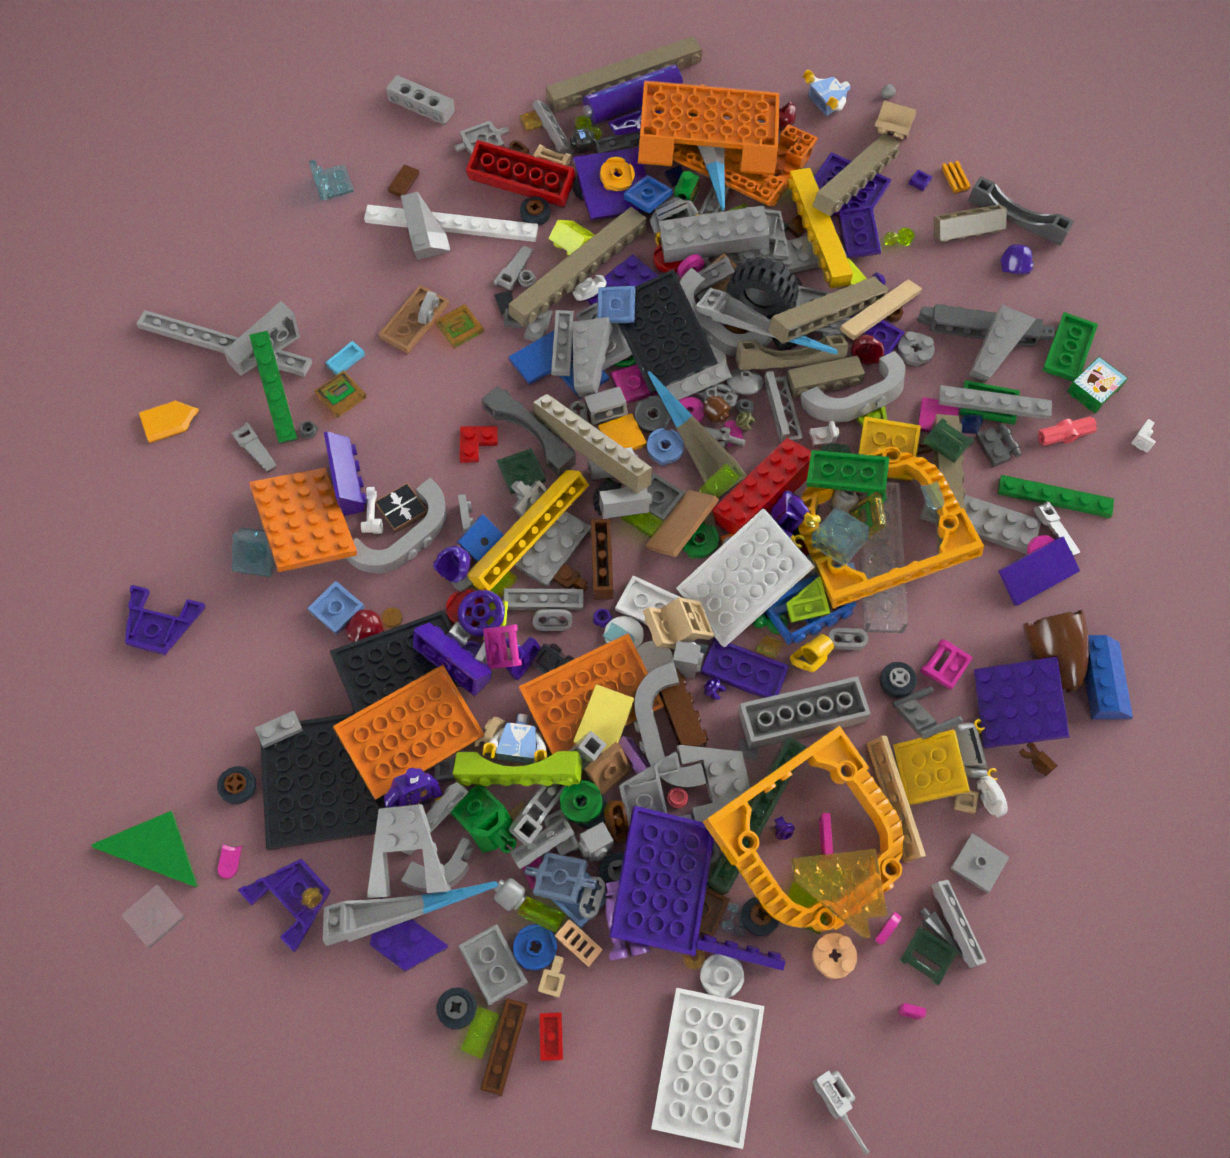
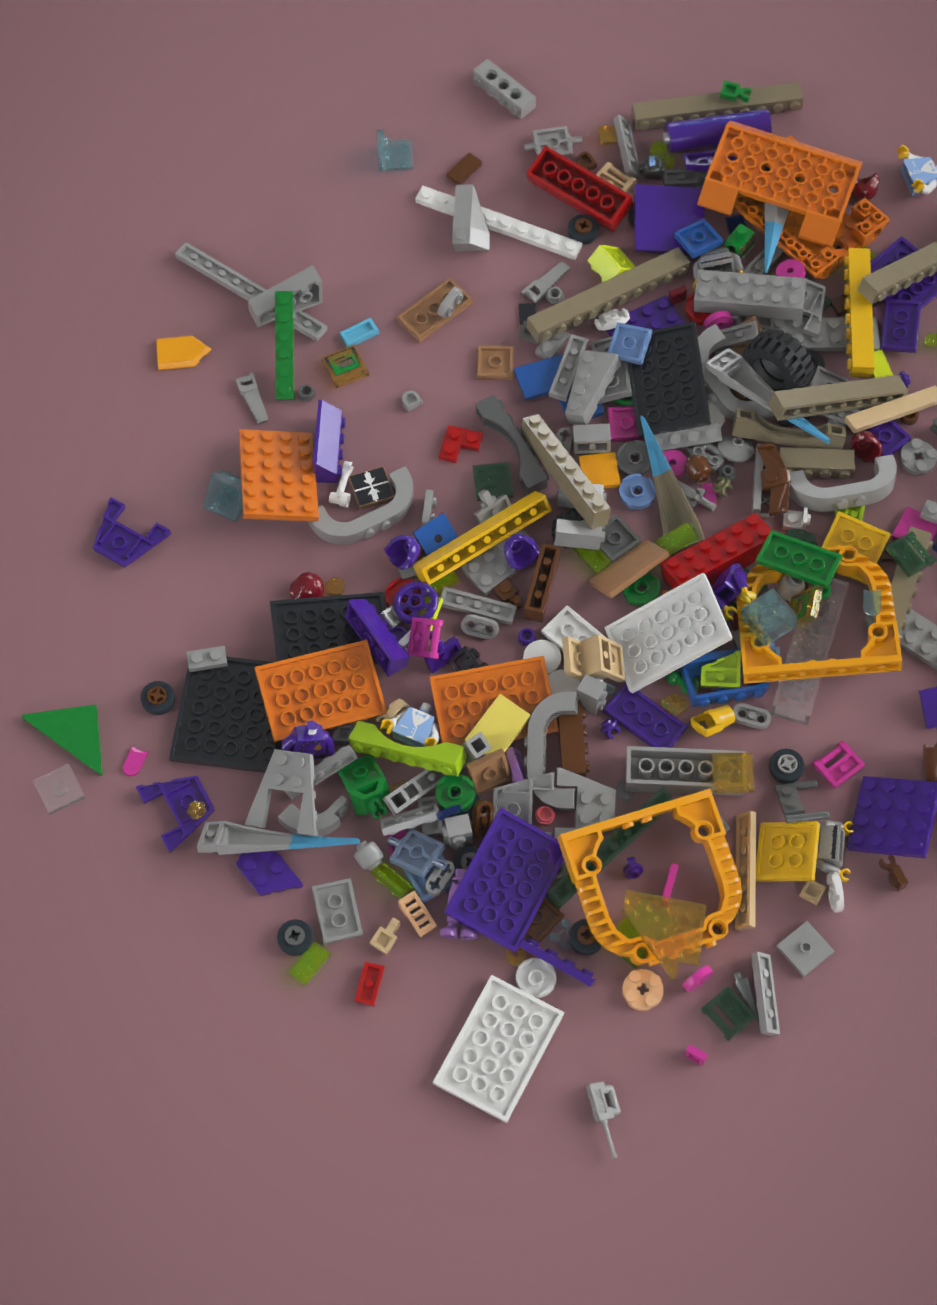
camera: 20 degrees right, 0 degrees up
(335, 607) = (286, 564): medium blue plate -> none
(416, 411) = (411, 400): none -> light grey tile
(459, 326) = (476, 327): clear yellow tile -> none
(488, 355) = (495, 362): none -> medium nougat tile
(504, 1047) = (327, 981): reddish brown tile -> none
(529, 959) = (385, 898): blue plate -> none
(571, 533) = (520, 551): none -> dark purple hair
(582, 825) = (448, 812): none -> clear blue tile
(613, 182) = (681, 206): light orange plate -> none
(615, 632) = (535, 651): clear light blue piece -> none
(635, 56) = (732, 91): none -> green plate
(644, 250) = (678, 294): none -> dark red tile
(742, 199) = (791, 265): none -> dark pink piece
(794, 400) = (775, 478): none -> reddish brown plate
(853, 702) = (732, 773): none -> clear yellow plate

